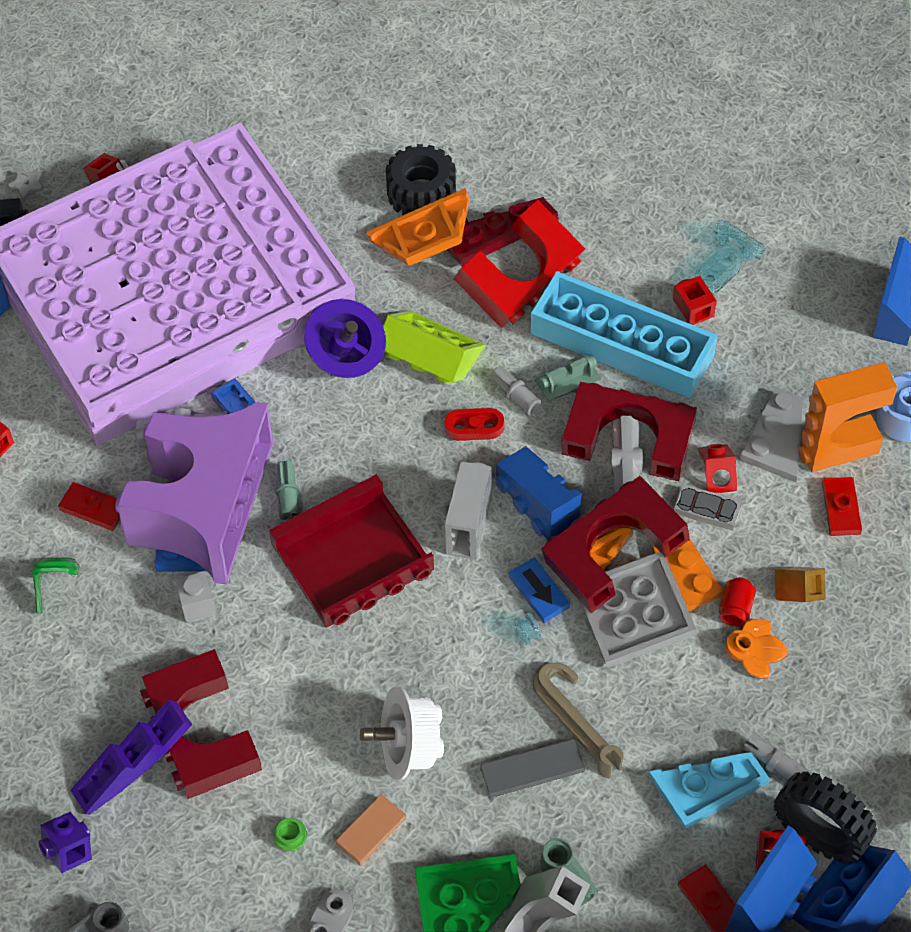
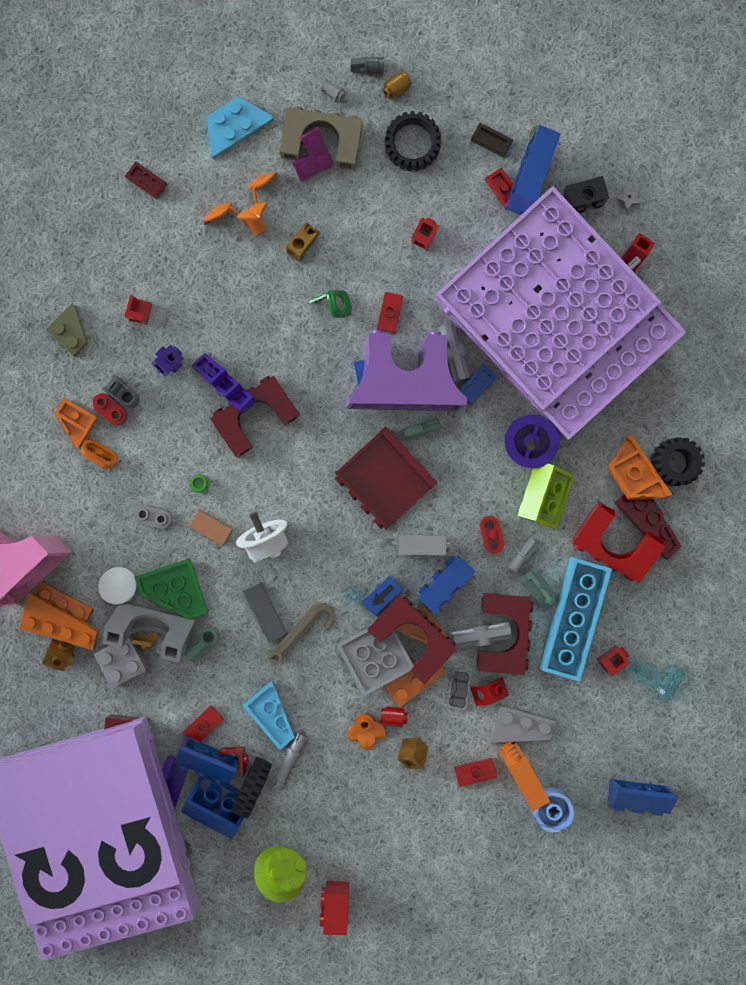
camera: 75 degrees right, 30 degrees up
(195, 596) = (336, 391): light grey brick -> none

